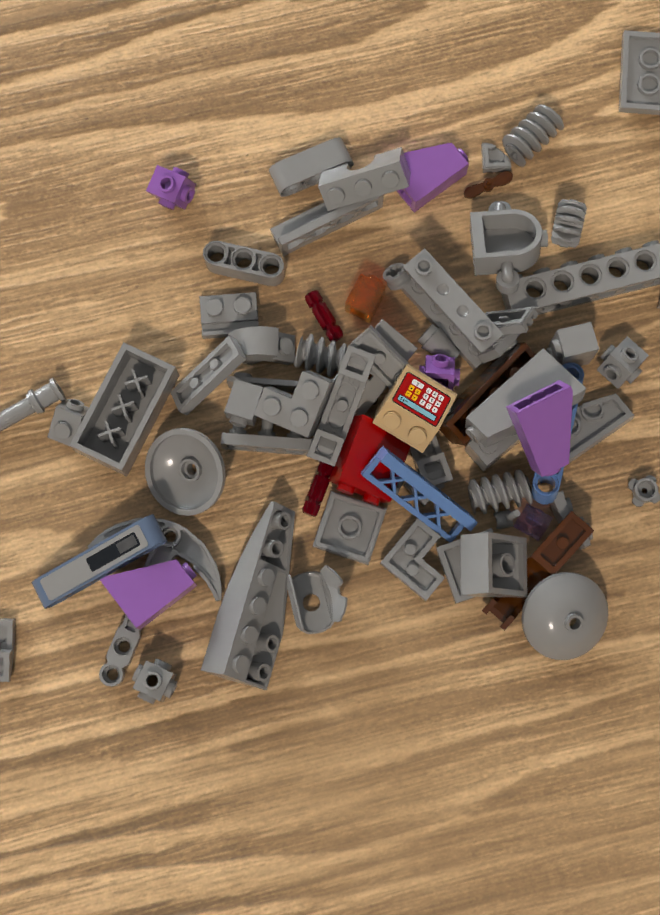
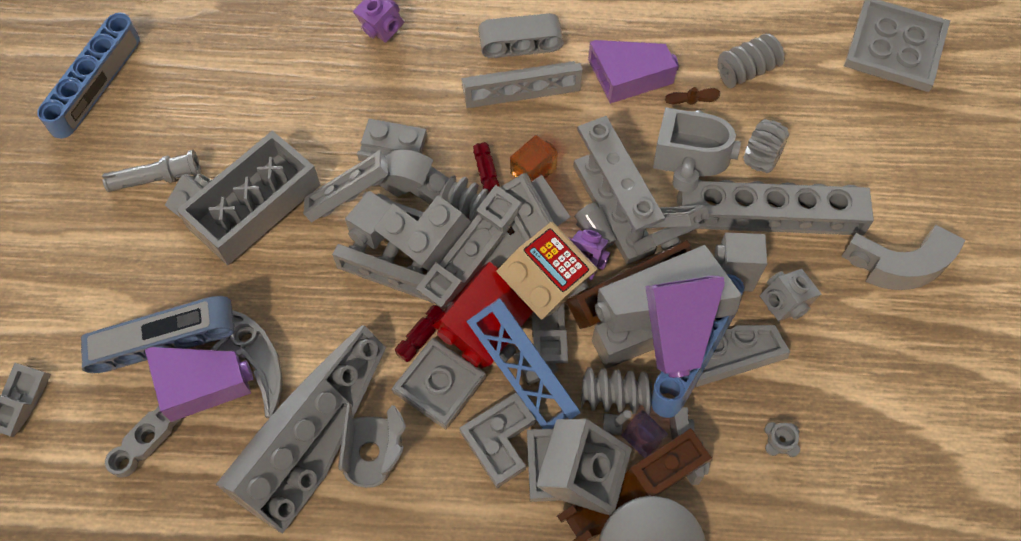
camera: 15 degrees right, 15 degrees down
(166, 681) = (161, 482): light grey brick -> none
(171, 472) = (285, 272): light grey dish -> none
(235, 253) = (407, 92): light grey beam -> none
(382, 176) = (567, 50): light grey arch -> none
(396, 276) = (572, 151): light grey bush -> none
(494, 159) = (705, 76): light grey tile -> none

